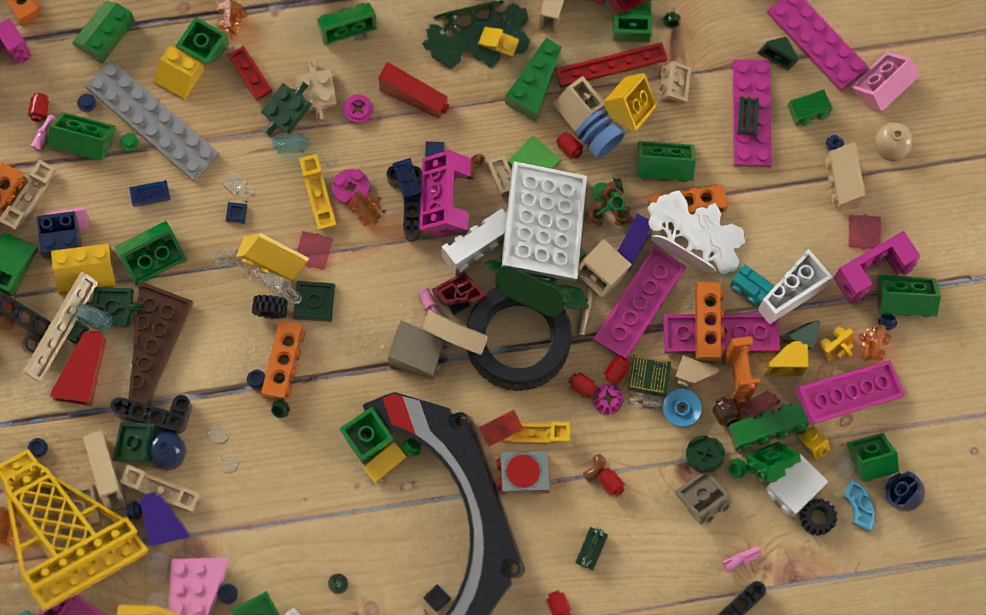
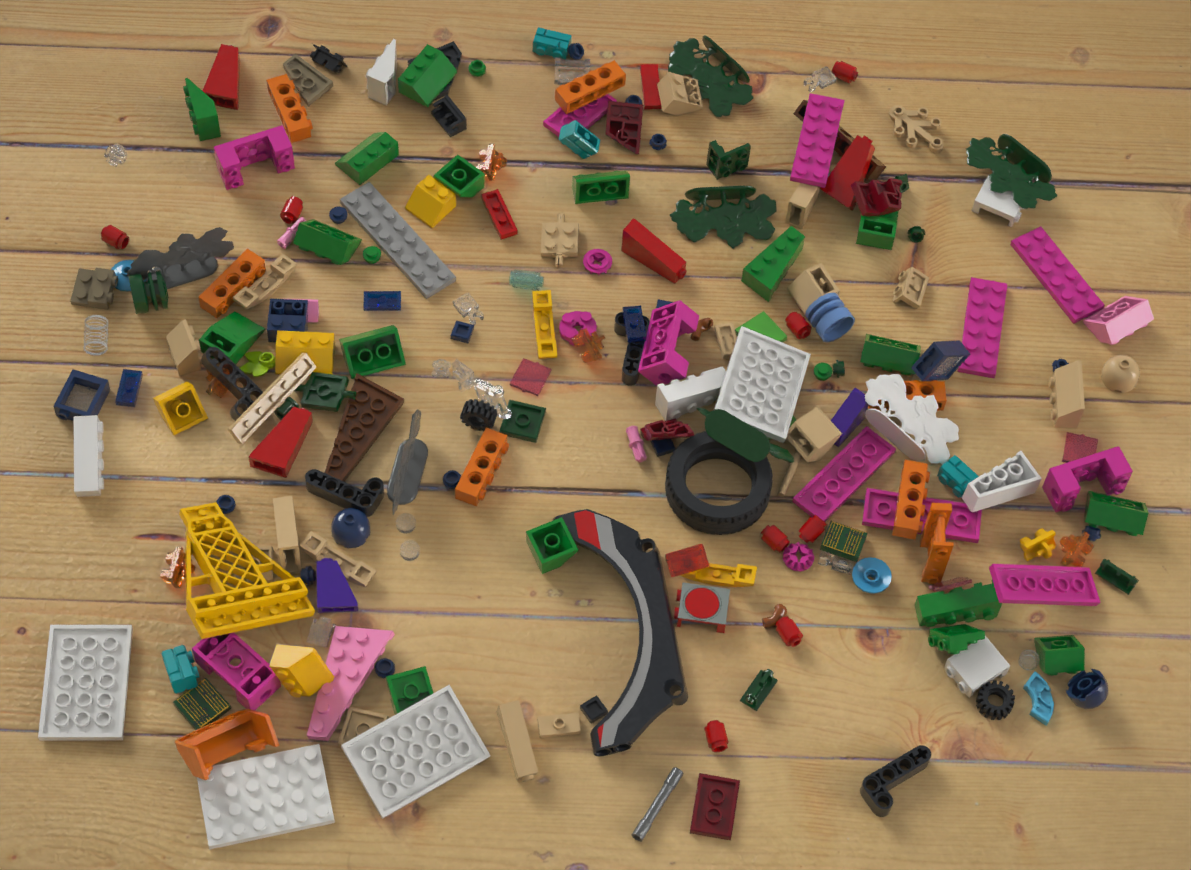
camera: 10 degrees right, 15 degrees down
(37, 286) = (258, 363): none -> lime plate
(94, 317) = (306, 395): clear light blue head -> none
(133, 442) = (320, 514): dark green plate -> none
(210, 375) = (408, 467): none -> dark grey plant
(270, 256) = (489, 364): yellow slope -> none
(280, 409) = (467, 511): dark green plate -> none
(286, 108) = (528, 248): dark green plate -> none
(338, 583) = (497, 678): clear green tile -> none
(385, 462) = (565, 574): yellow slope -> none
(411, 447) = (594, 566): green plate -> none
(416, 351) = (614, 478): dark tan slope -> none
(454, 332) = (657, 463): tan slope -> none
(498, 41) = (743, 224): yellow slope -> none
(612, 64) = (854, 262): red plate -> none
(615, 204) = (834, 376): dark orange plant -> none
(631, 102) = (865, 293): yellow slope -> none
(694, 372) = (889, 545): tan slope -> none
(704, 497) = (881, 661): dark tan plate -> none
(705, 454) = (888, 622): dark green tile -> none
(717, 165) = (940, 360): none -> dark blue window
(726, 411) = (915, 585): reddish brown head -> none
(737, 468) = (919, 640): green plate -> none
(742, 558) = (910, 725): bright pink axle -> none
(749, 101) = (981, 313): dark green tile -> none
(779, 52) = (1017, 276): dark green slope -> none
(790, 361) = (985, 548): yellow slope -> none
(806, 334) = (1002, 531): dark green slope -> none
(810, 108) = (1040, 330): green brick -> none
(815, 442) = (1003, 631): yellow bracket -> none
(917, 363) = (1116, 576): none -> dark green hinge

